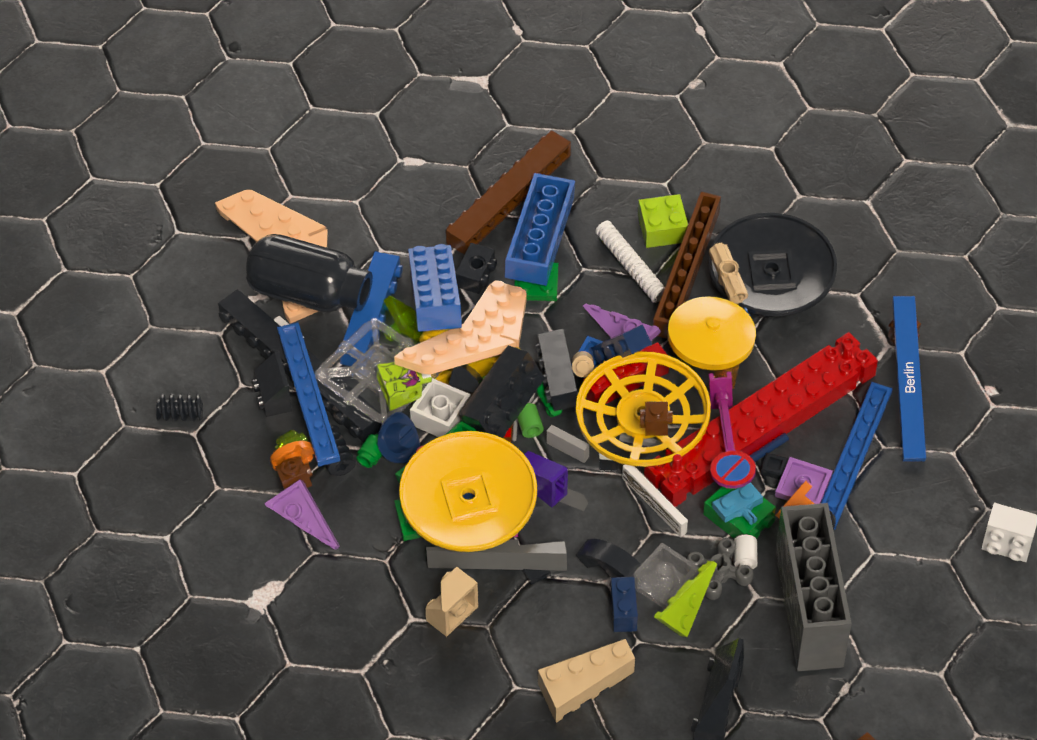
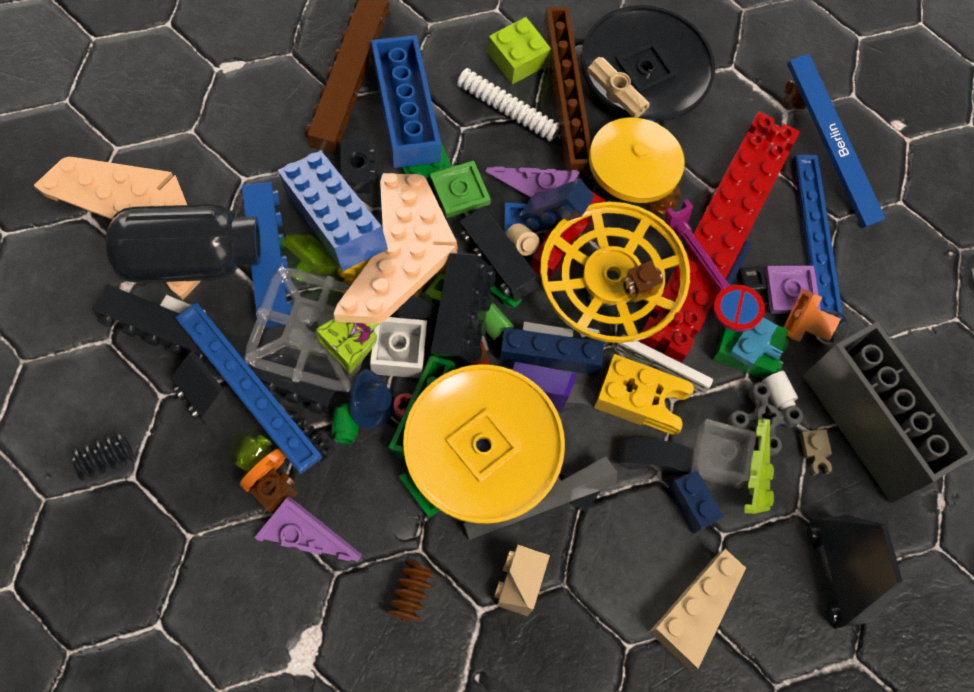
camera: 35 degrees left, 15 degrees up
(362, 579) = (411, 592): none -> reddish brown piece
(554, 312) = (460, 189): none -> bright green plate
(581, 463) = (551, 351): none -> dark blue brick
(620, 511) = (647, 396): none -> yellow brick
(754, 609) = (817, 447): none -> dark tan plate

